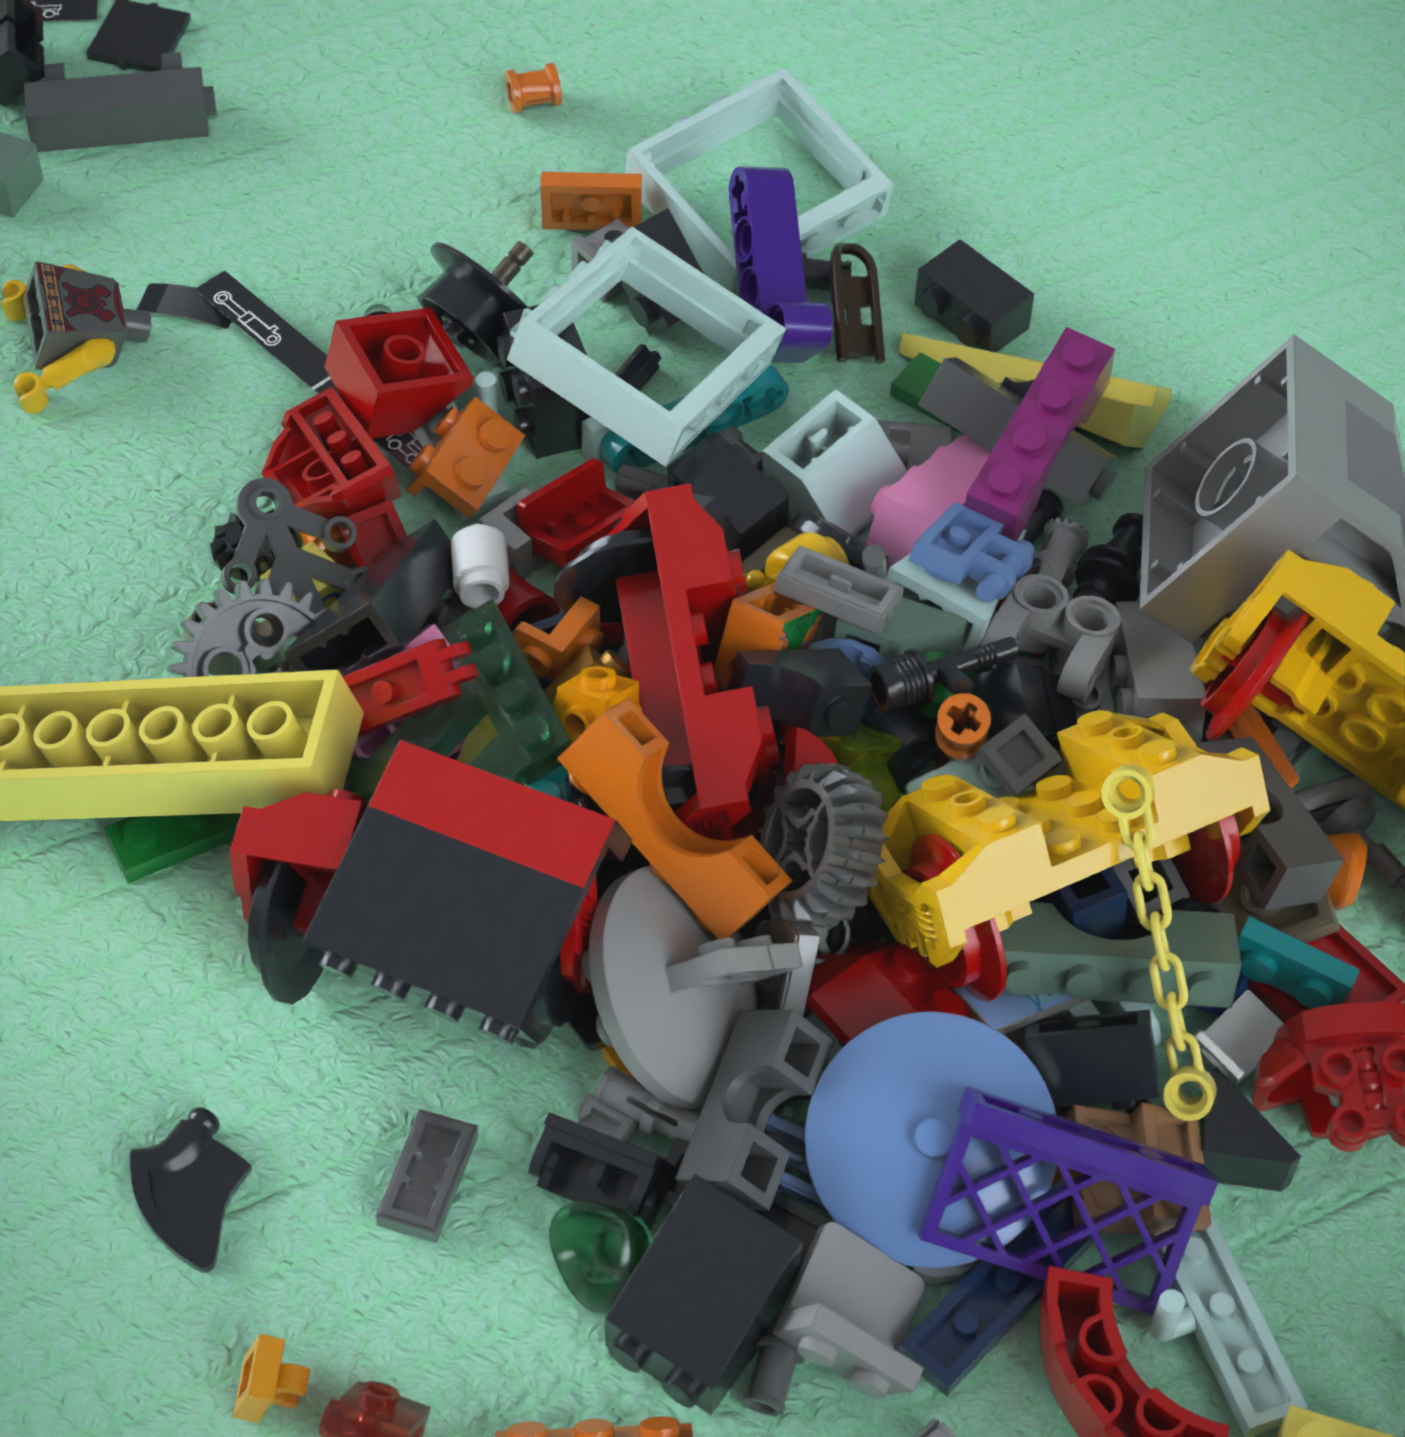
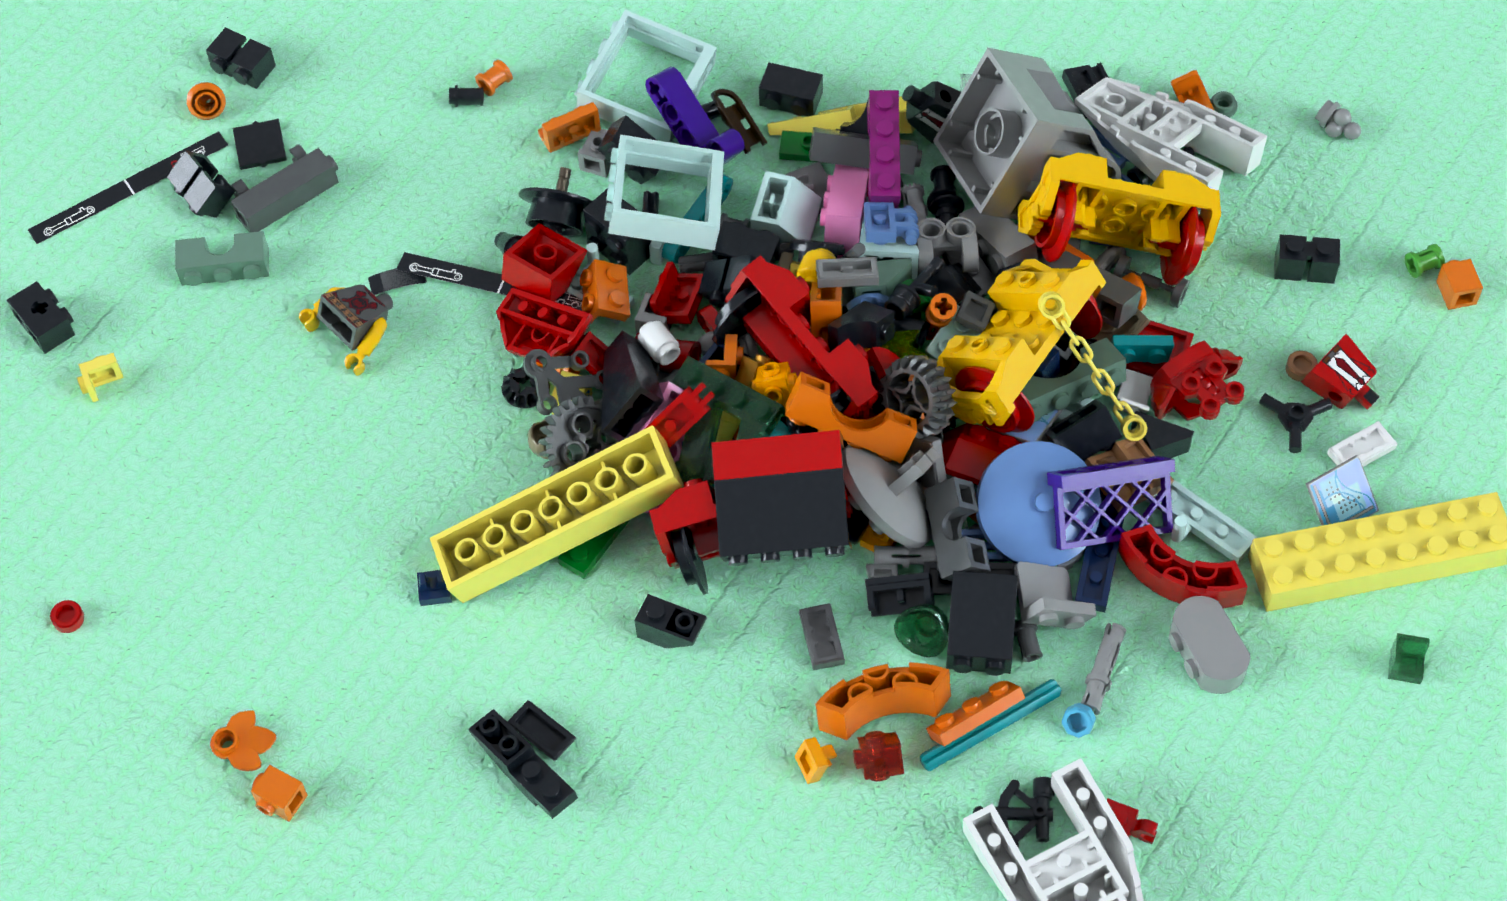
camera: 25 degrees left, 5 degrees up
(186, 1015) = (667, 623): none -> black slope
(187, 1187) = (717, 699): black arm -> none
(449, 1325) = (882, 693): none -> orange brick
(475, 96) = (466, 96): none -> black pin
(1165, 406) = (929, 107): none -> black torso

